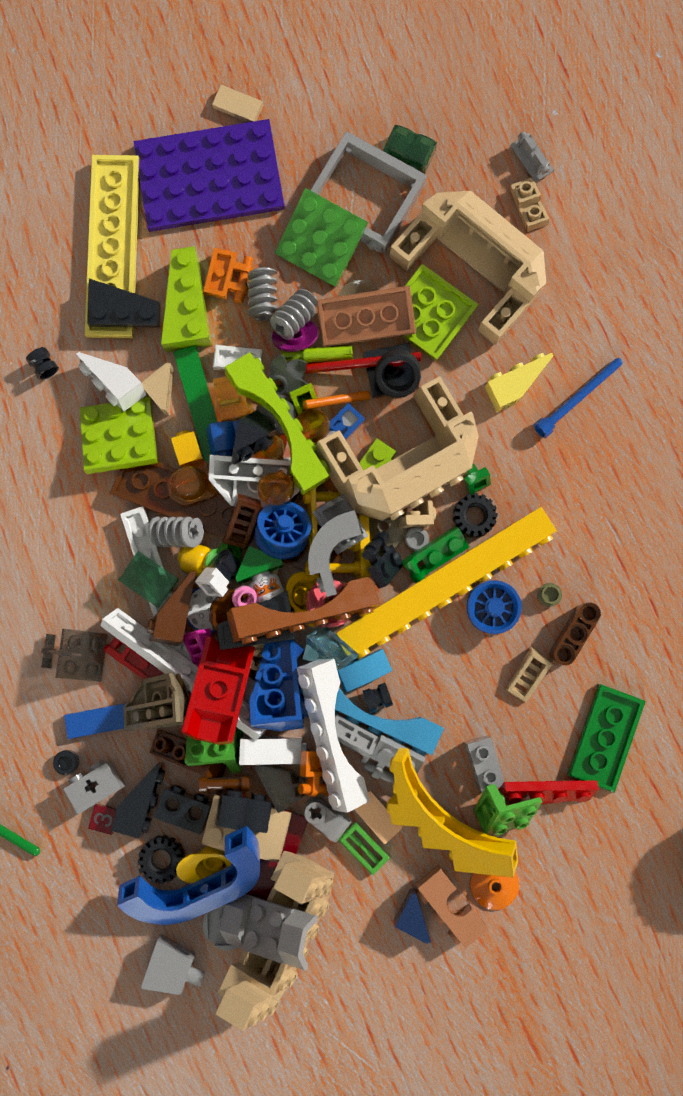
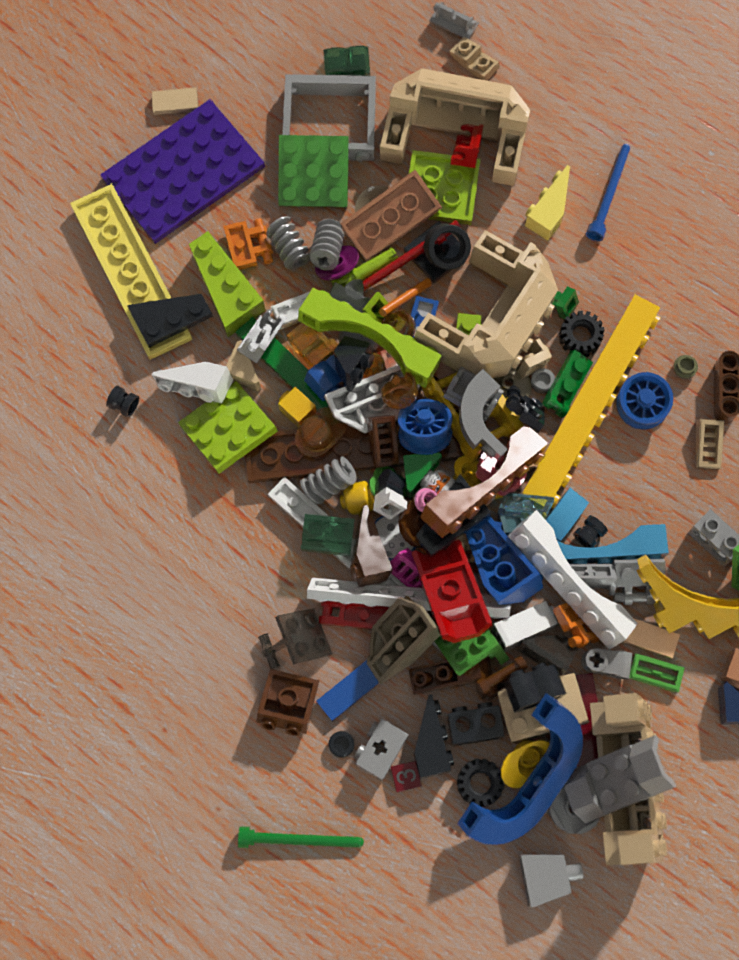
camera: 25 degrees left, 10 degrees down
(38, 703) = (287, 702): none -> reddish brown plate
(188, 369) = (261, 336): none -> light grey hinge
(472, 287) = (467, 147): none -> red hinge

